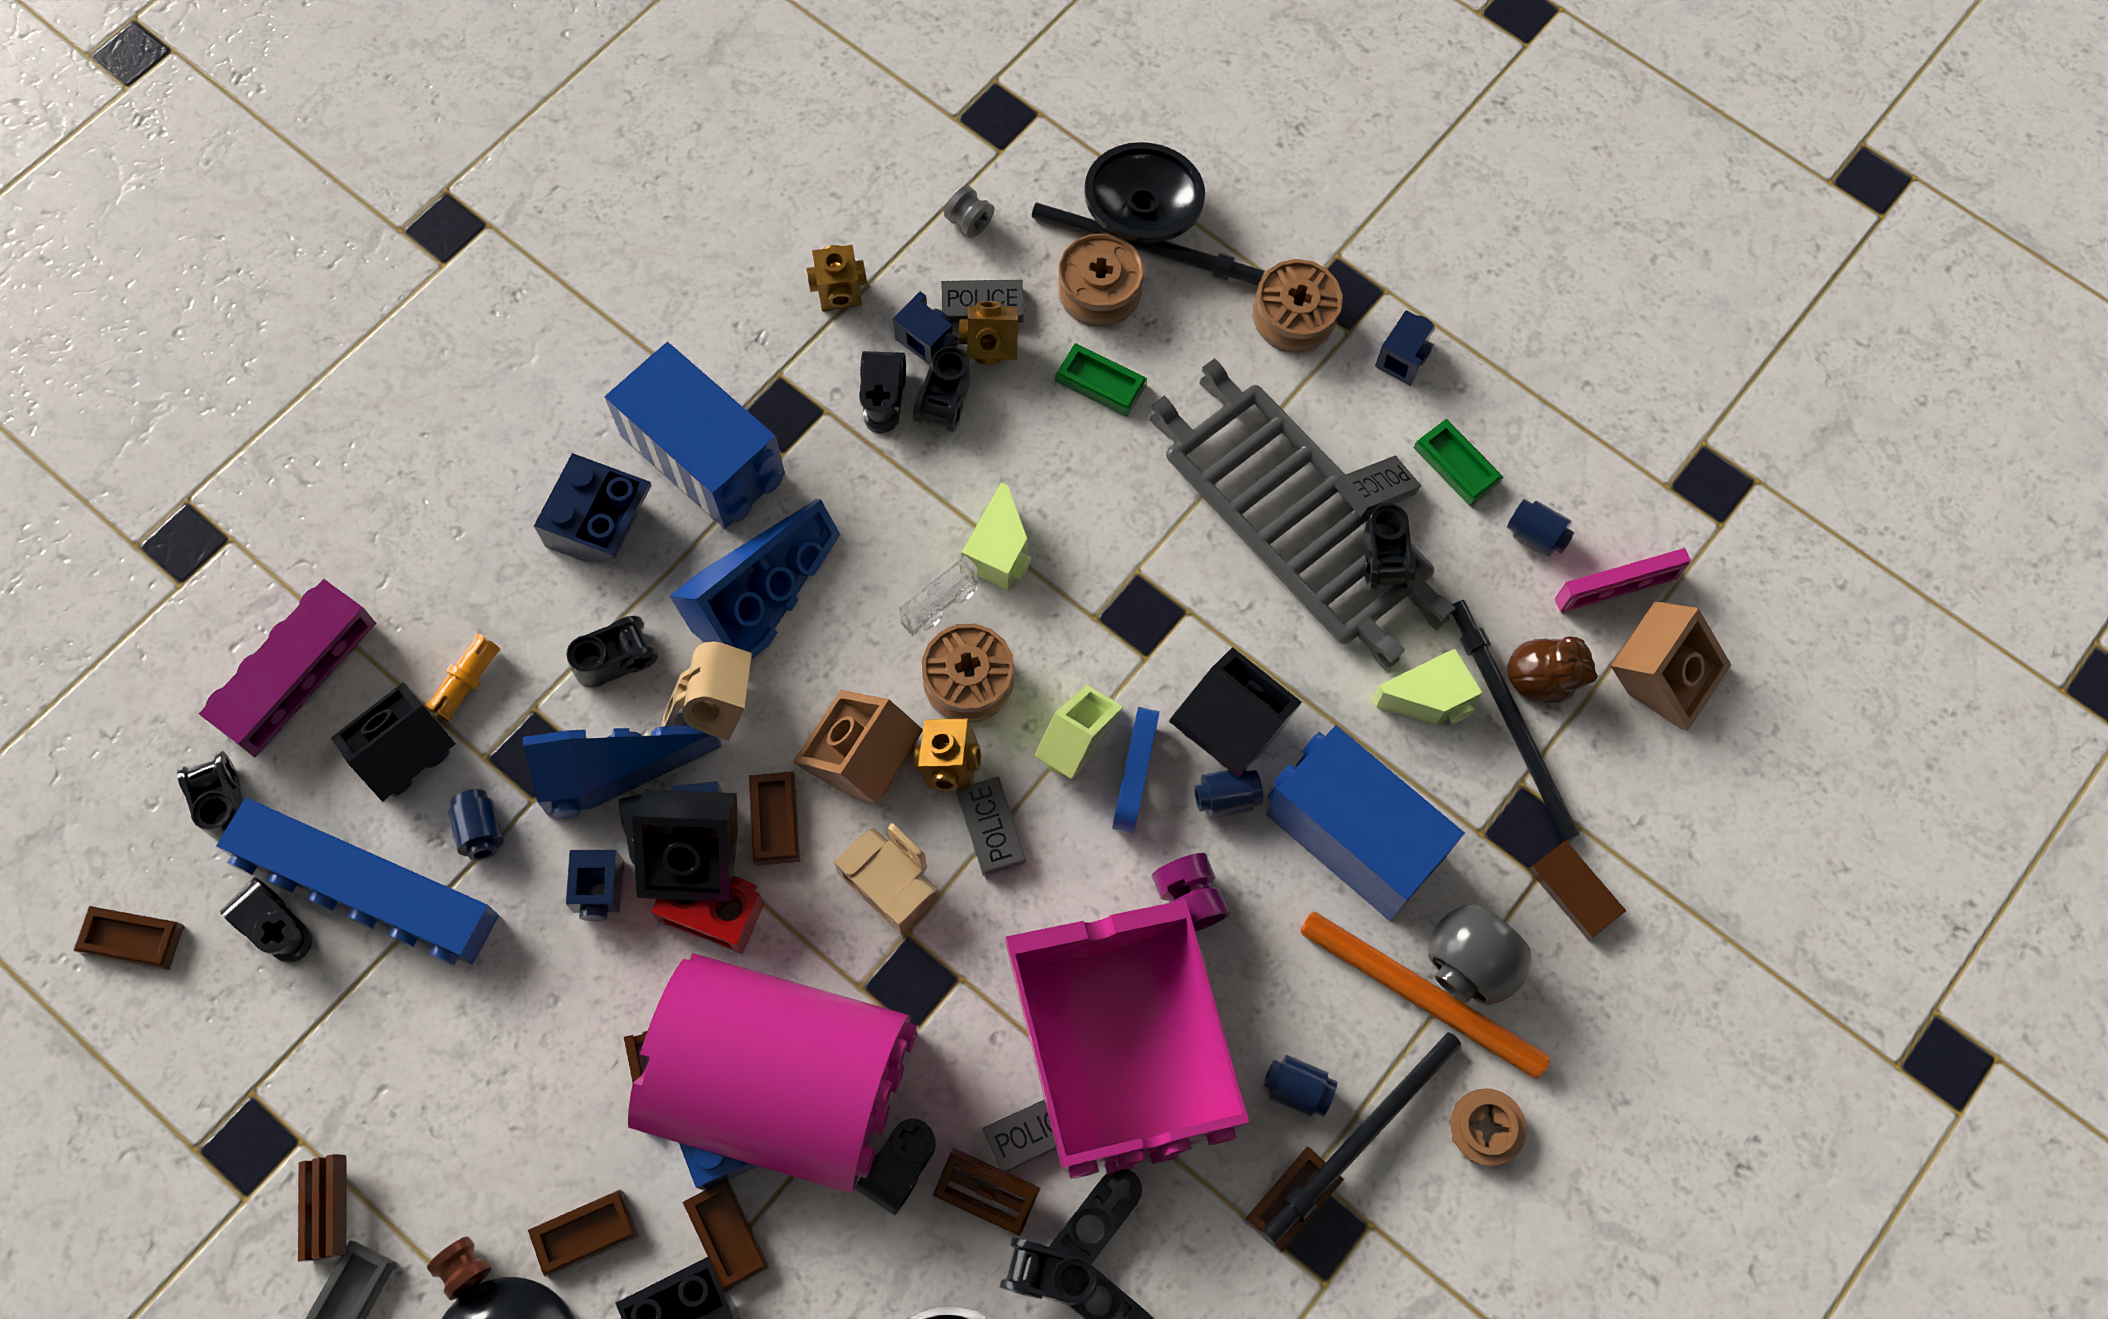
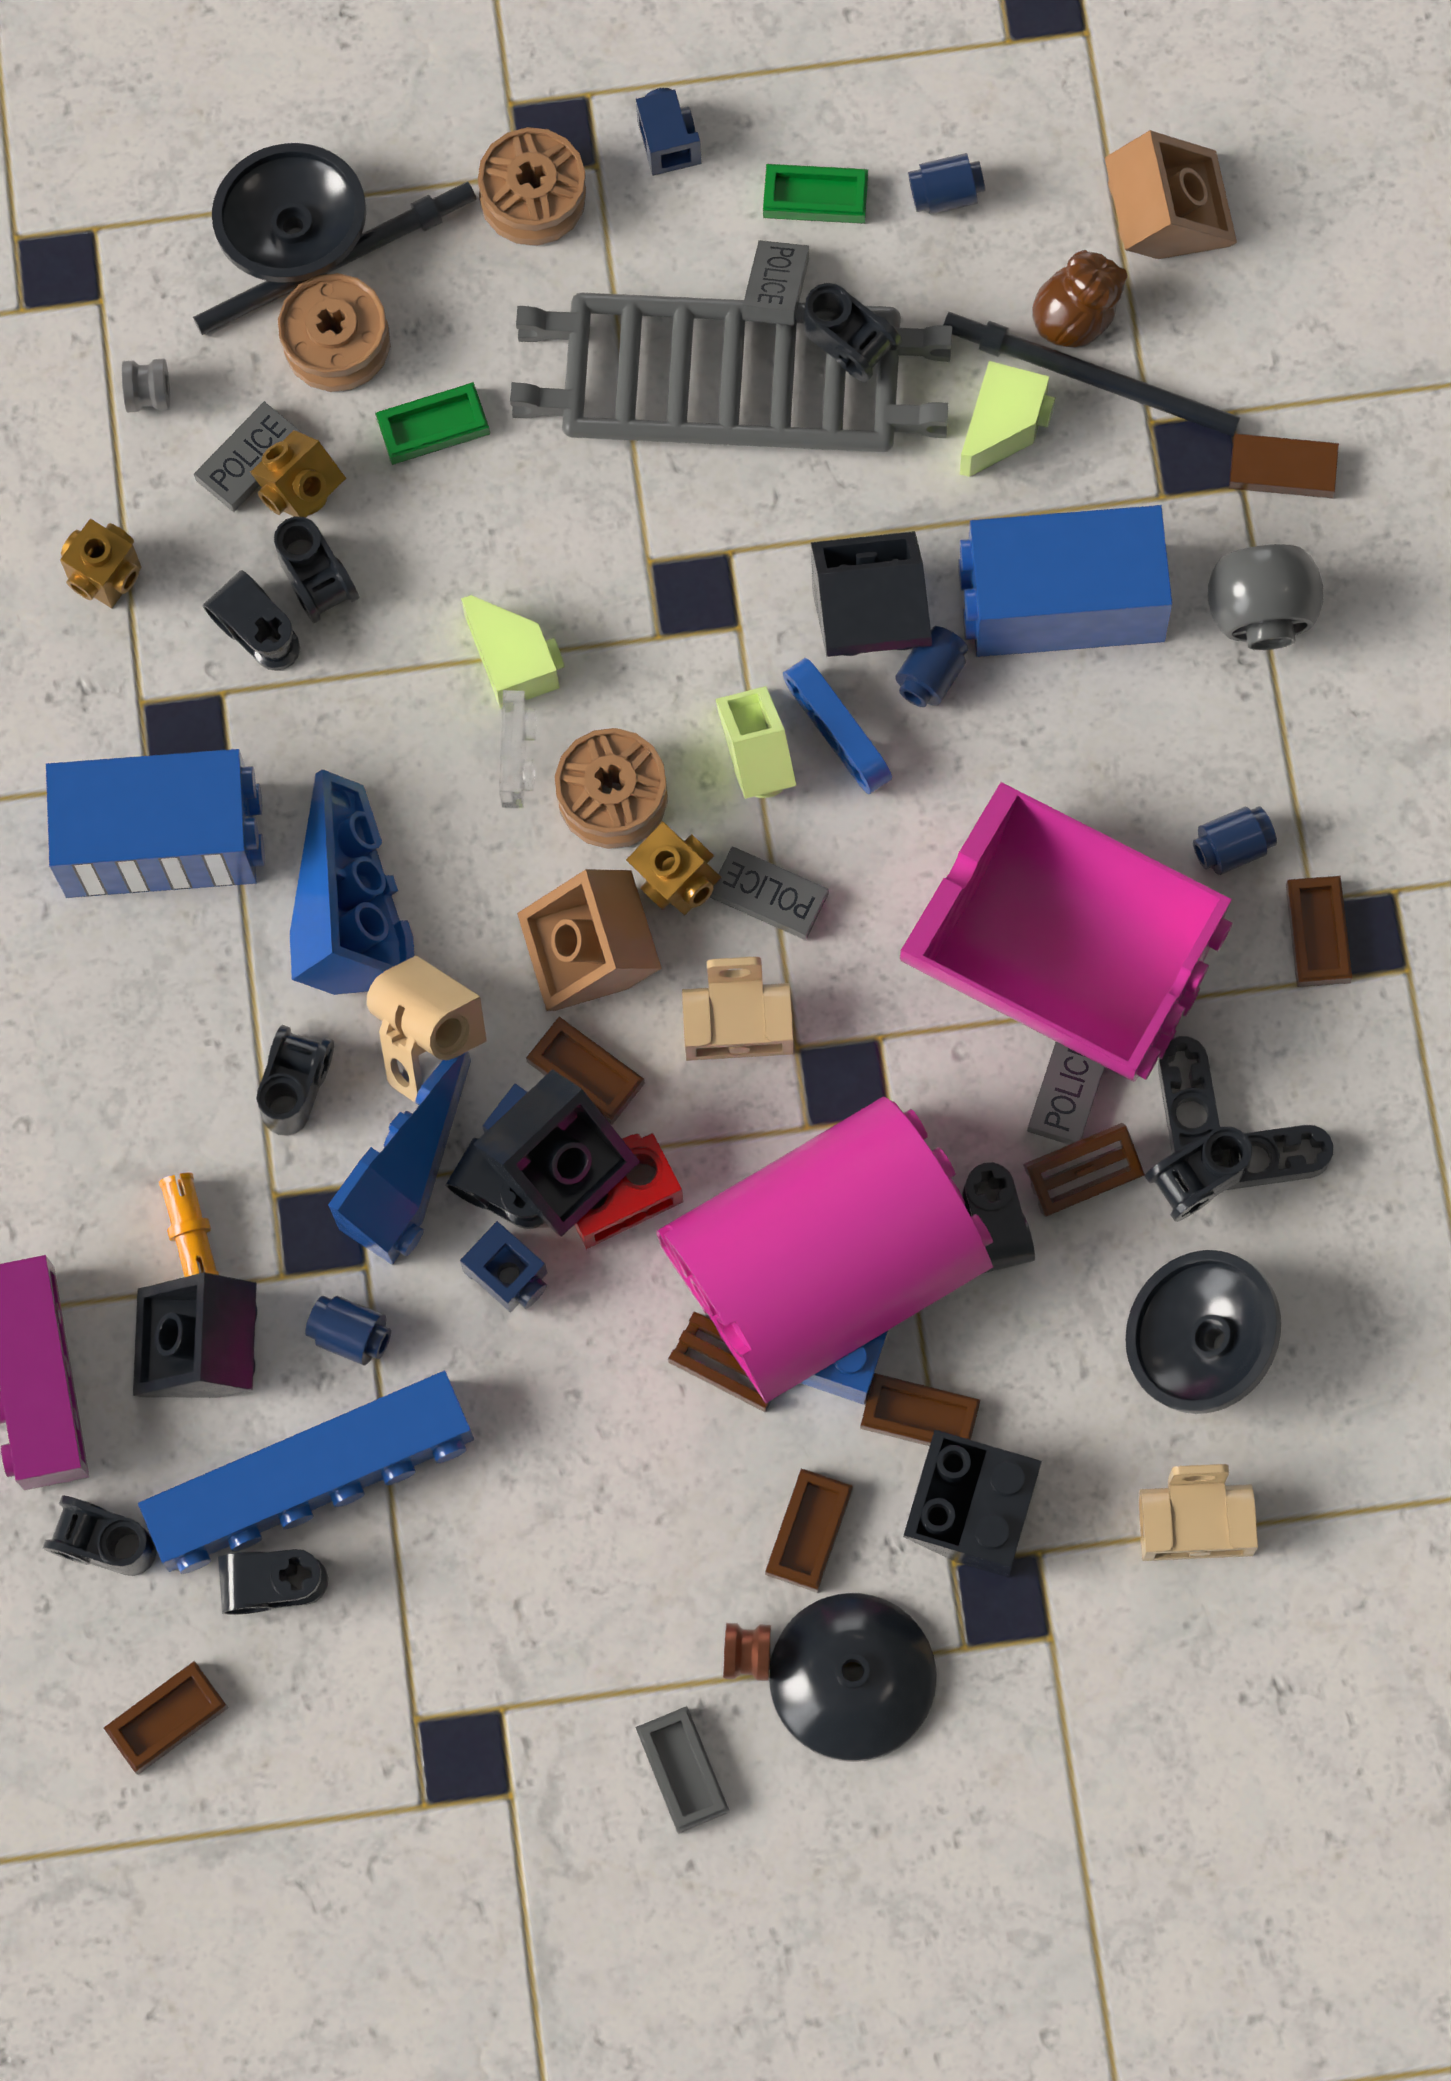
camera: 40 degrees left, 5 degrees up
(322, 1208) = (573, 1743): reddish brown tile -> none
(590, 510) = (138, 978): dark blue slope -> none
(923, 329) = (234, 533): dark blue brick -> none
(1192, 871) = (980, 756): magenta wheel -> none
(1302, 1201) = (1328, 922): black bar -> none
(1426, 995) = (1252, 671): orange axle -> none
(1504, 1114) = (1406, 701): medium nougat gear -> none
(1622, 580) = (1059, 164): dark pink tile -> none

